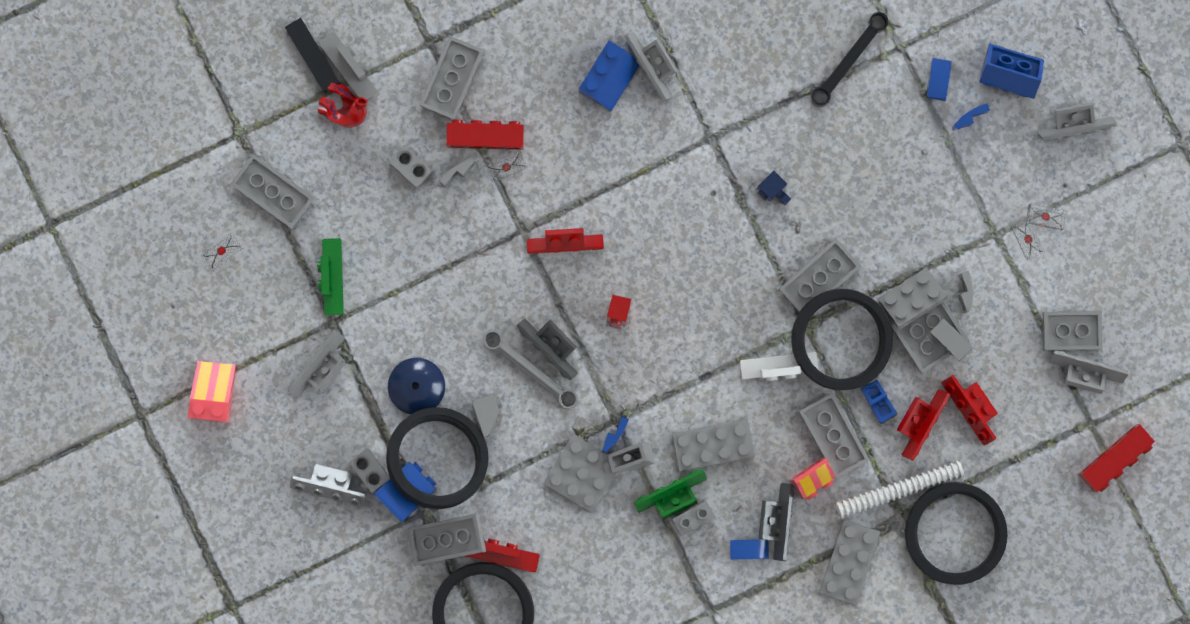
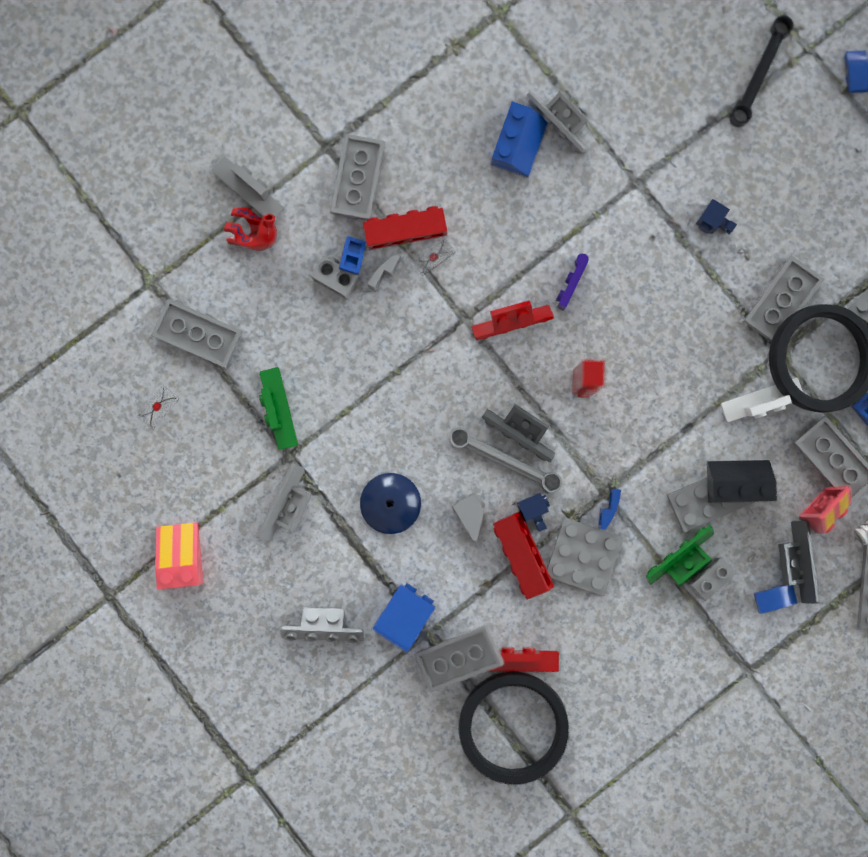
camera: 10 degrees left, 0 degrees up
(311, 54) = (207, 184): black tile -> none
(373, 467) = (364, 598): light grey brick -> none
(431, 150) = (352, 255): none -> blue slope
(462, 423) = (458, 538): black tyre -> none
(526, 459) = (523, 555): none -> red brick
(545, 419) = (533, 508): none -> dark blue brick
(629, 216) = (572, 281): none -> dark purple plate
(631, 458) = (632, 530): light grey slope -> none
(739, 435) = (741, 481): none -> black slope

